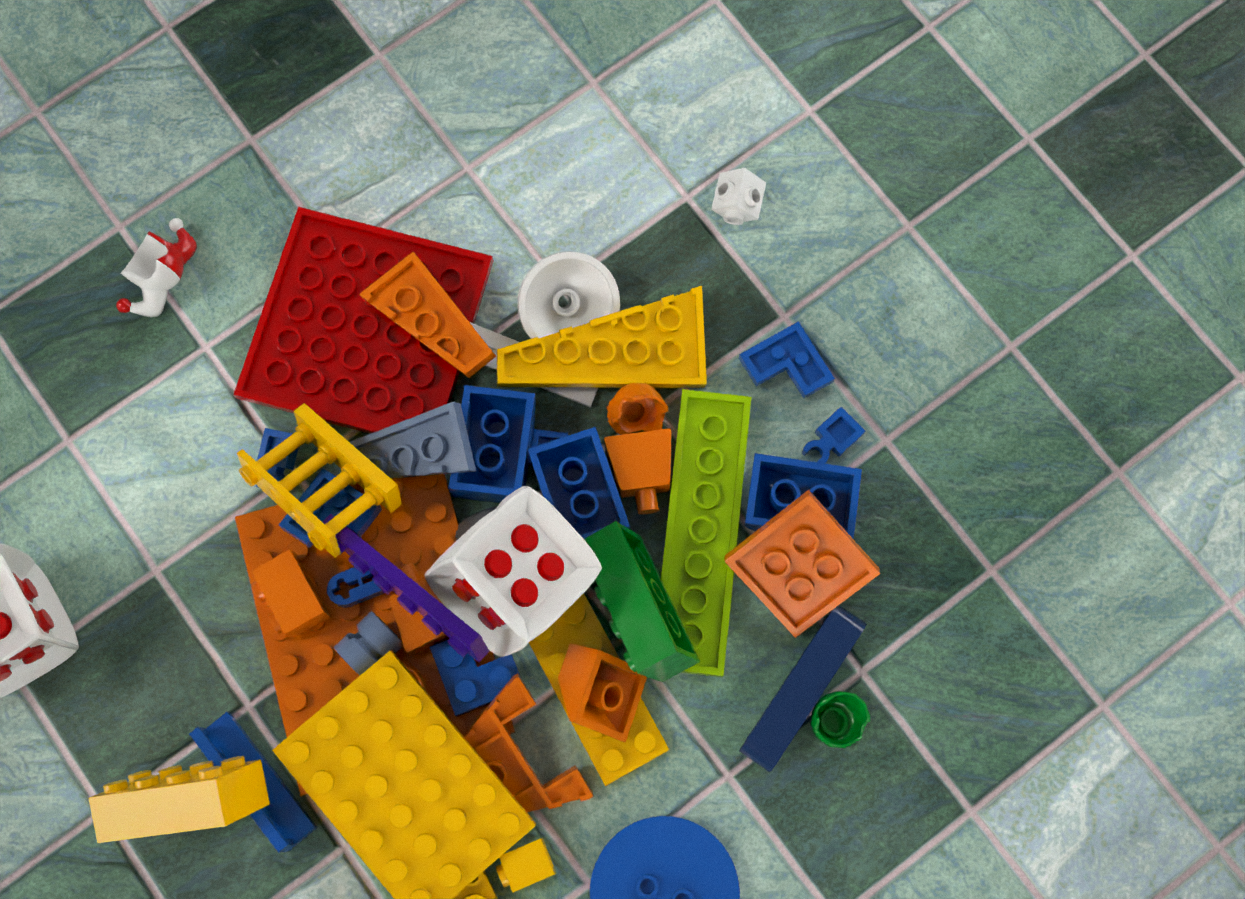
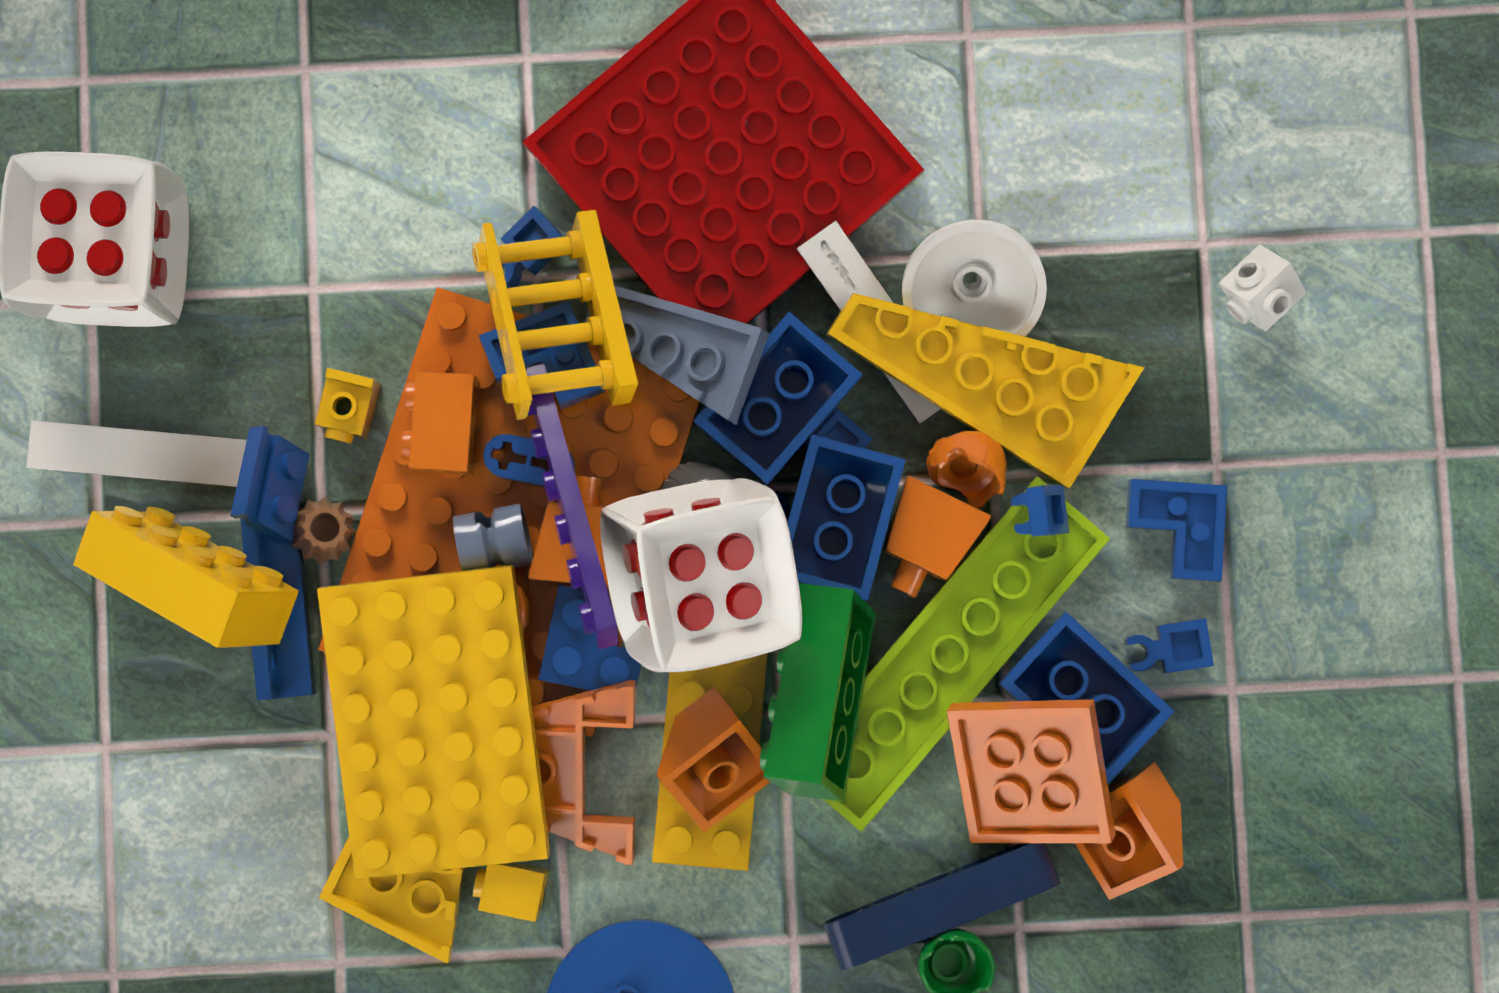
camera: 35 degrees right, 10 degrees up
(101, 749) = (135, 453): none -> white piece
(201, 707) = (270, 485): none -> blue plate
(234, 634) = (363, 396): none -> yellow brick
(255, 716) = (323, 530): none -> medium nougat piece
(423, 309) = (802, 187): orange wing -> none
(701, 402) = (1046, 511): none -> blue tile
(900, 560) = (1146, 834): none -> orange slope

